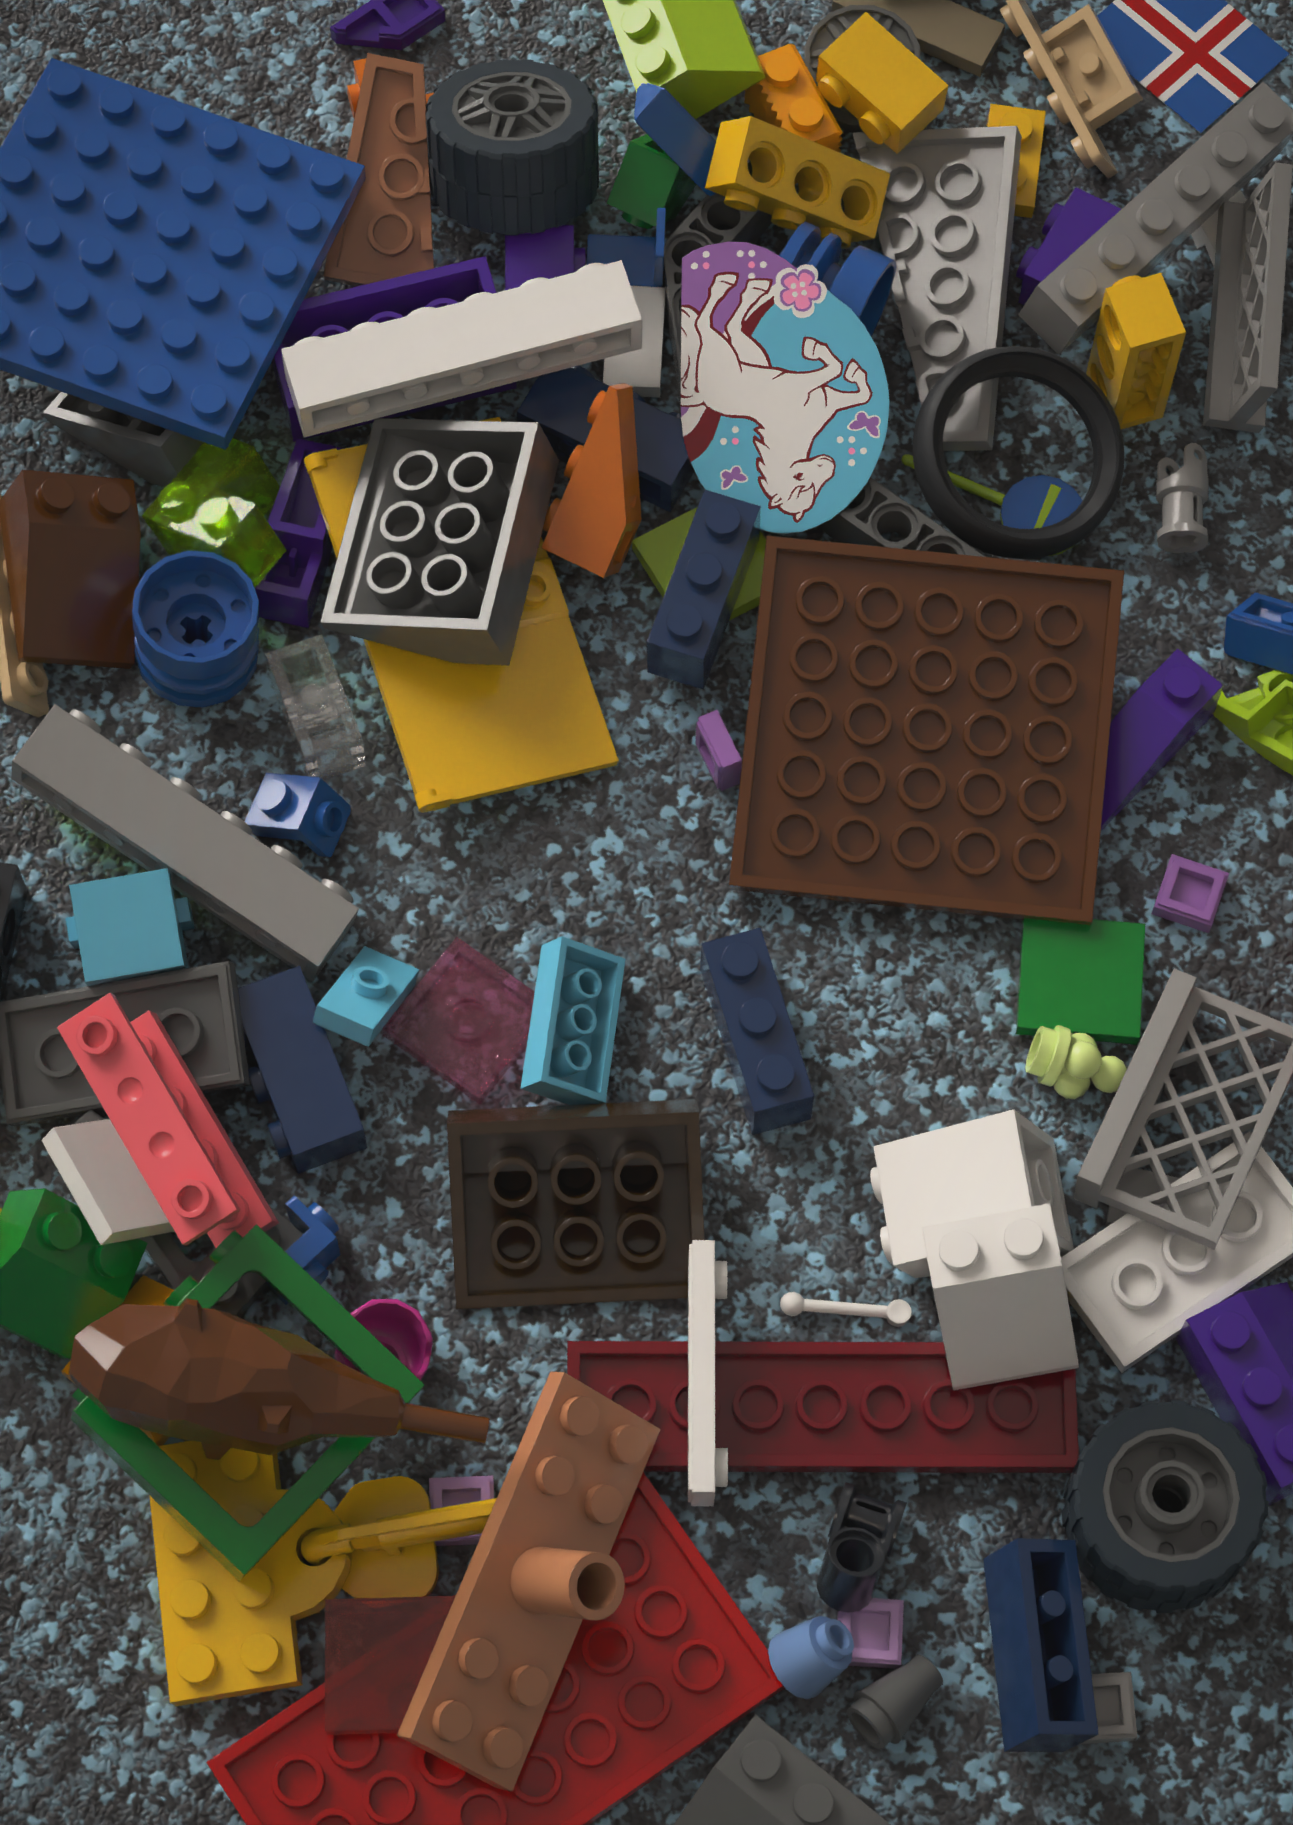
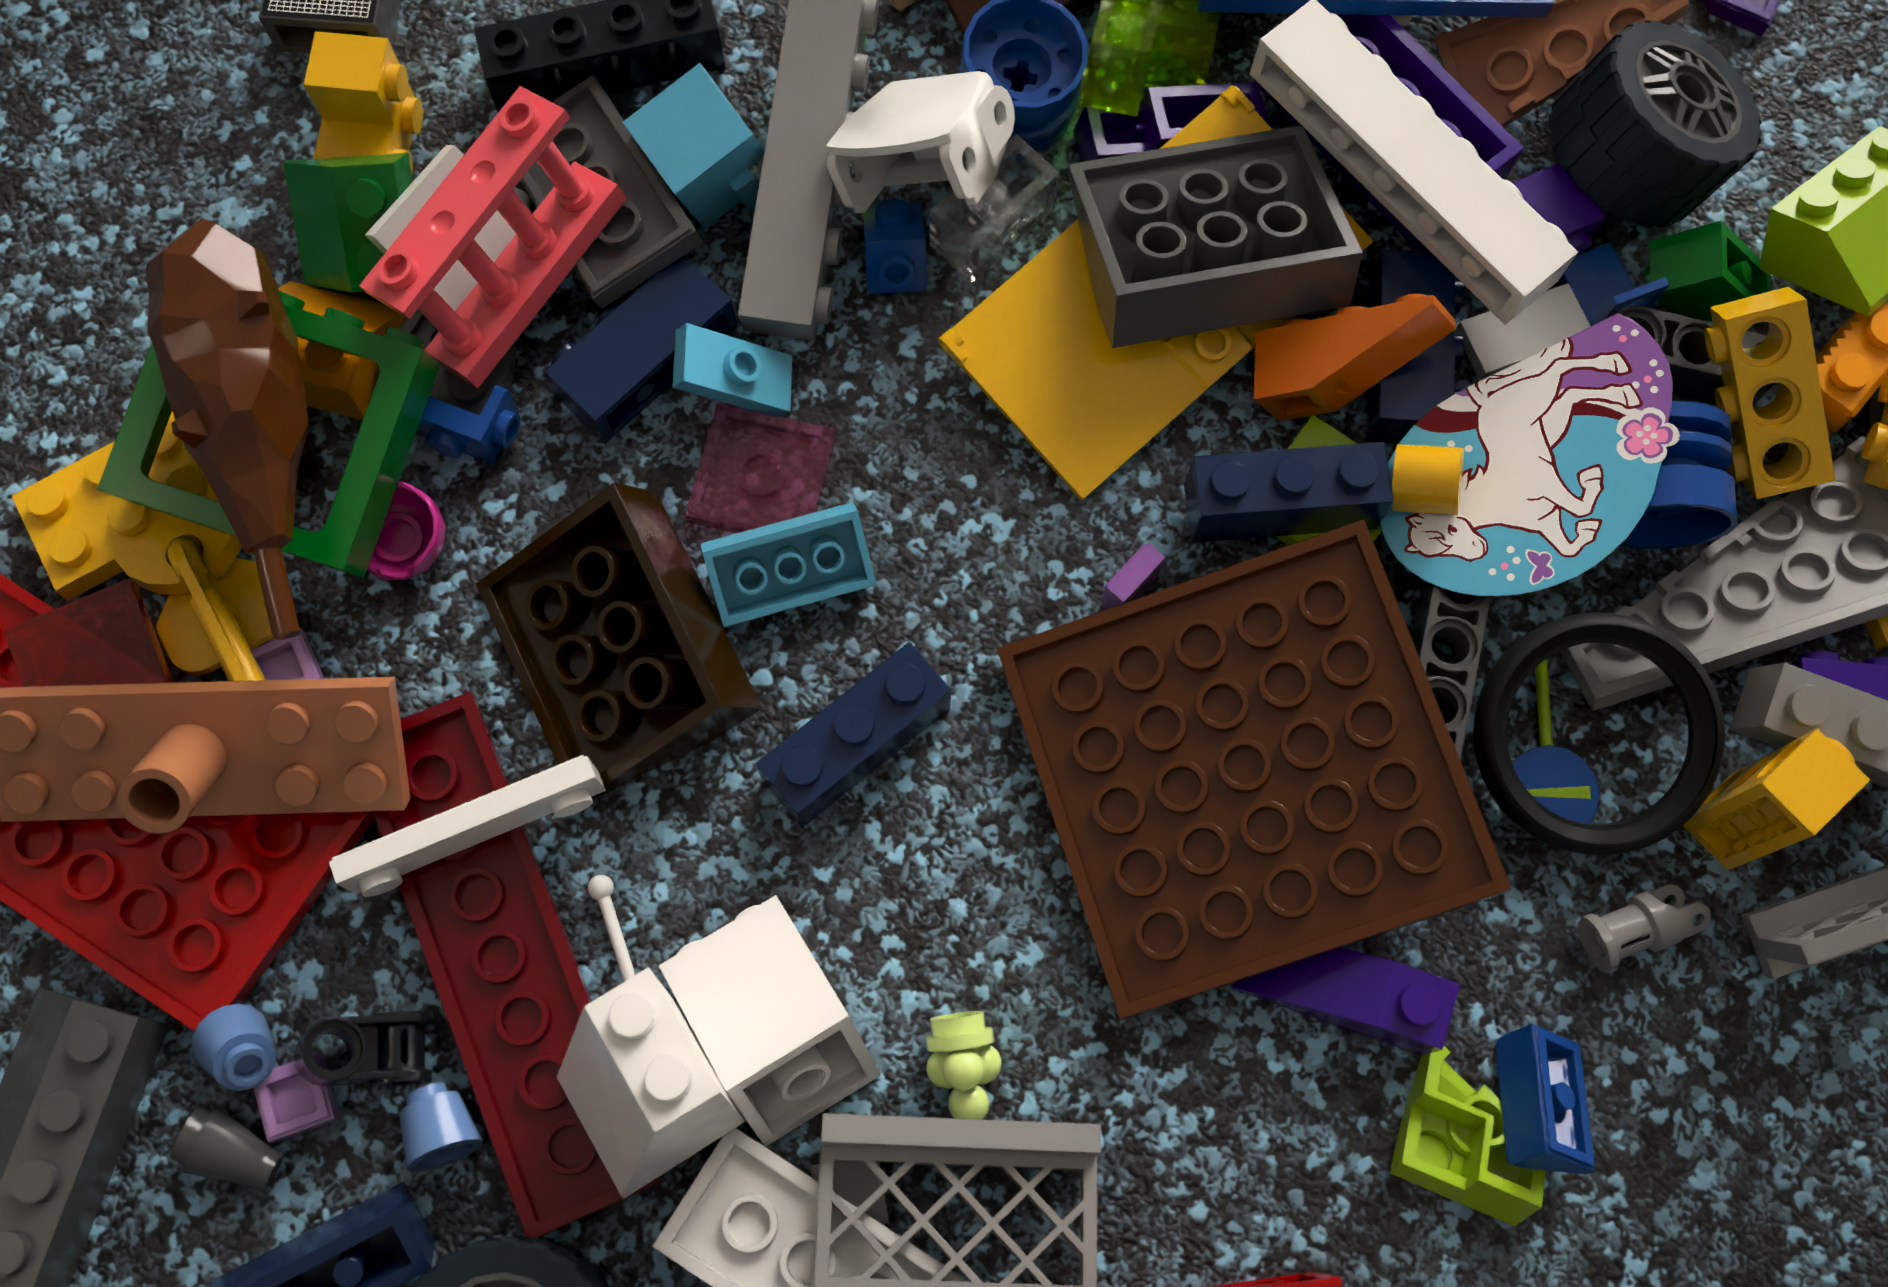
camera: 65 degrees right, 5 degrees up
(230, 724) = (923, 134): none -> white piece
(675, 132) = (1751, 251): blue slope -> none
(749, 470) = (1427, 479): none -> yellow brick
(949, 1511) = (436, 1128): none -> medium blue hat
(1082, 978) = (1060, 1035): green tile -> none
(1190, 893) = (1208, 1110): medium lavender tile -> none

